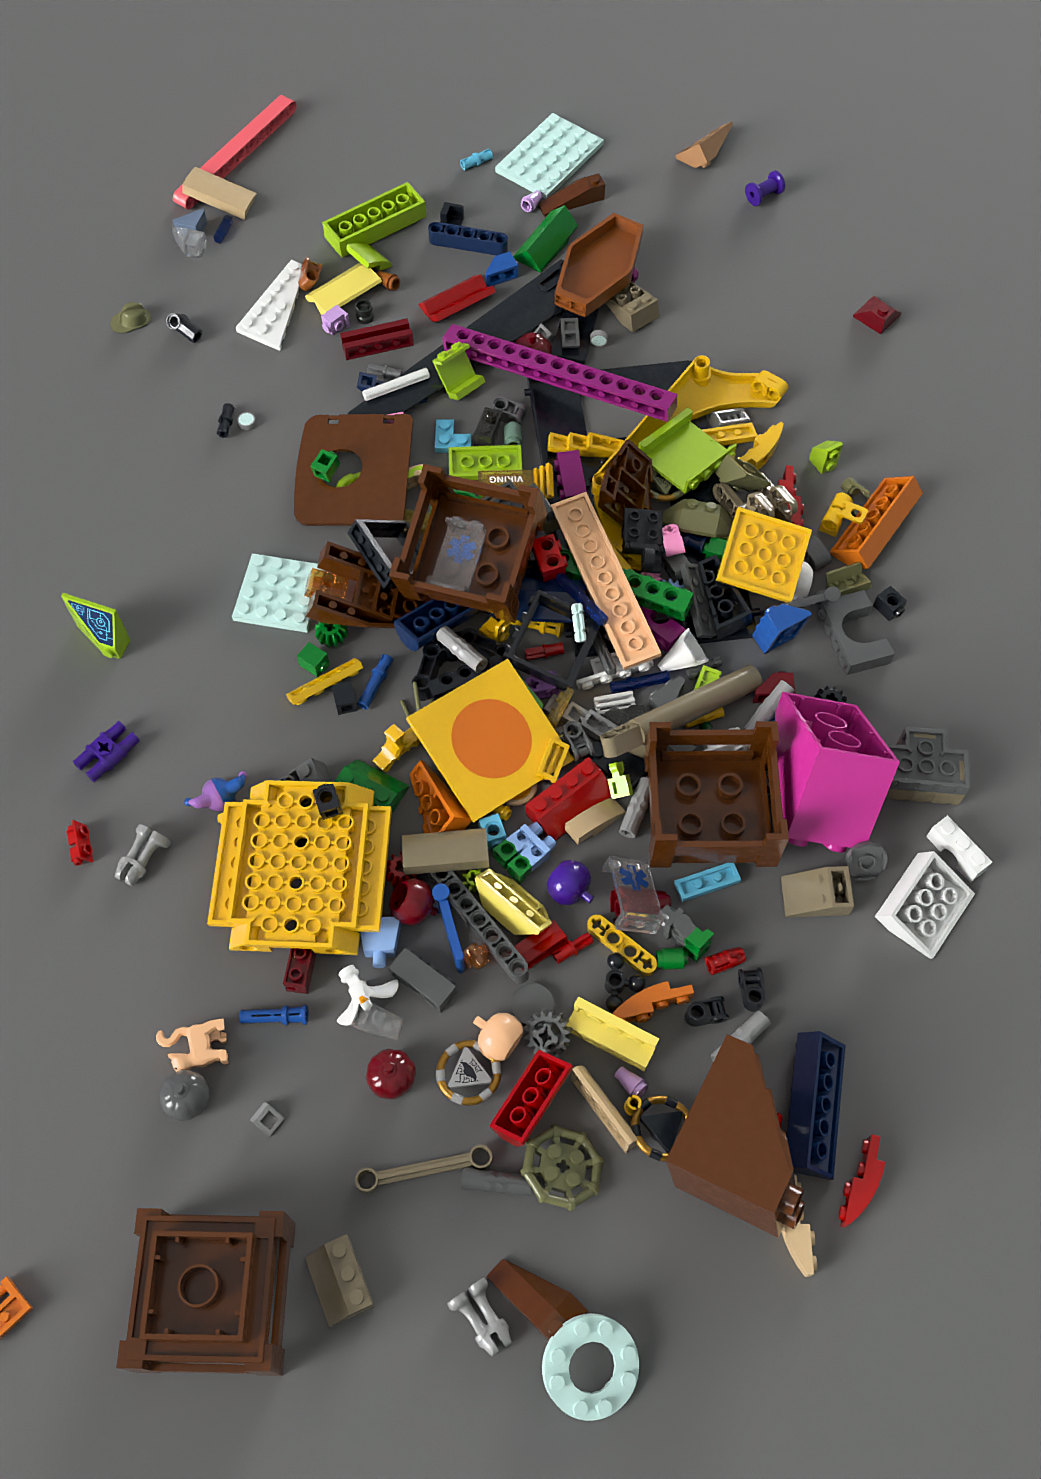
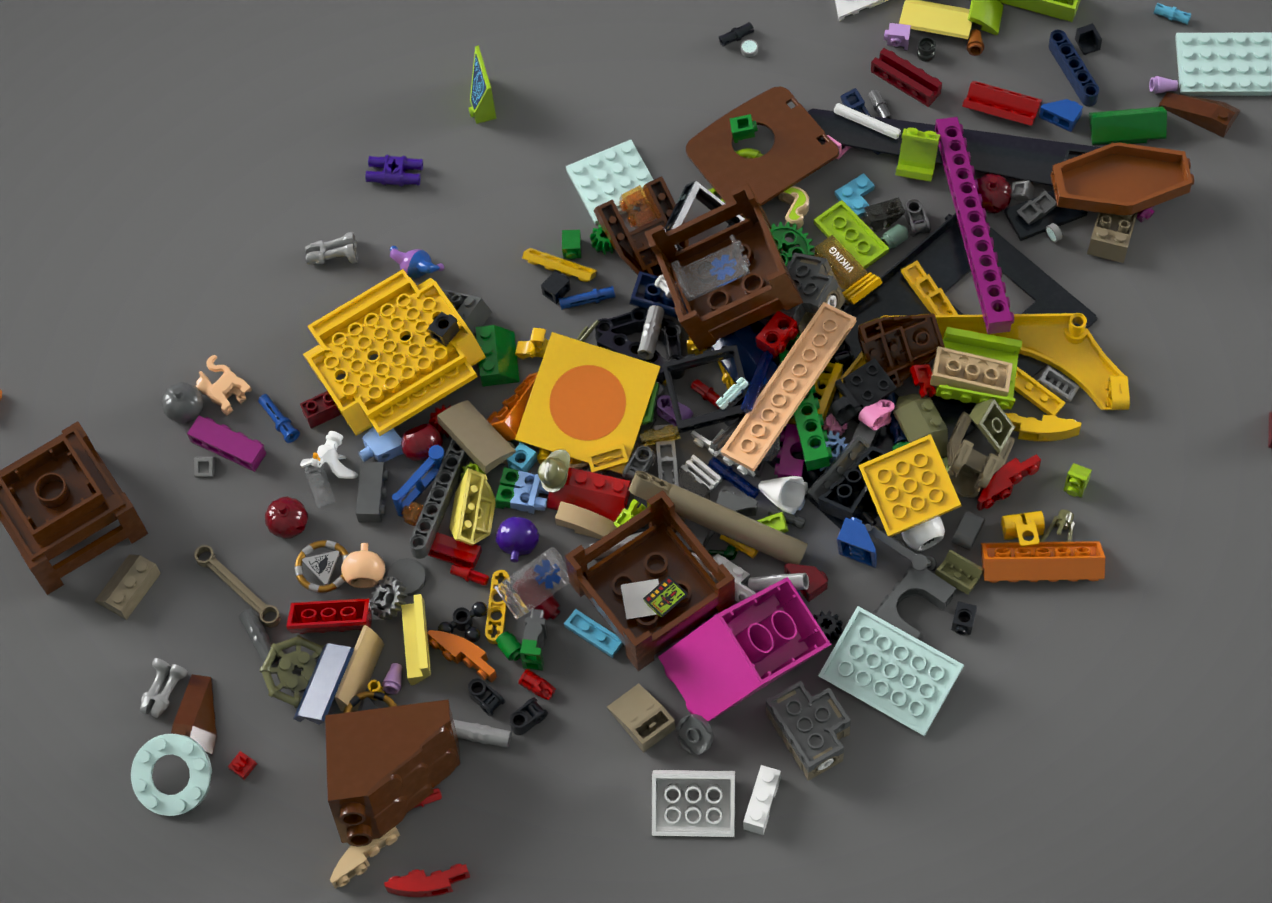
camera: 60 degrees right, 0 degrees up
(79, 835) = (316, 207): red hinge -> none
(261, 1081) = (227, 443): none -> magenta brick
(435, 610) = (660, 282): none -> white bush
(533, 807) = (554, 470): none -> olive piece
(570, 474) = (888, 302): magenta brick -> none
(603, 1147) = (324, 683): none -> slope
(621, 1286) = (242, 765): none -> red tile
(664, 491) = (921, 376): none -> red plate
(687, 457) = (971, 372): none -> tan slope
(716, 816) = (633, 598): none -> white sticker
(731, 796) = (665, 596): none -> piece
(815, 1104) = (465, 815): dark blue slope -> none
(906, 678) = (891, 670): none -> light aqua plate

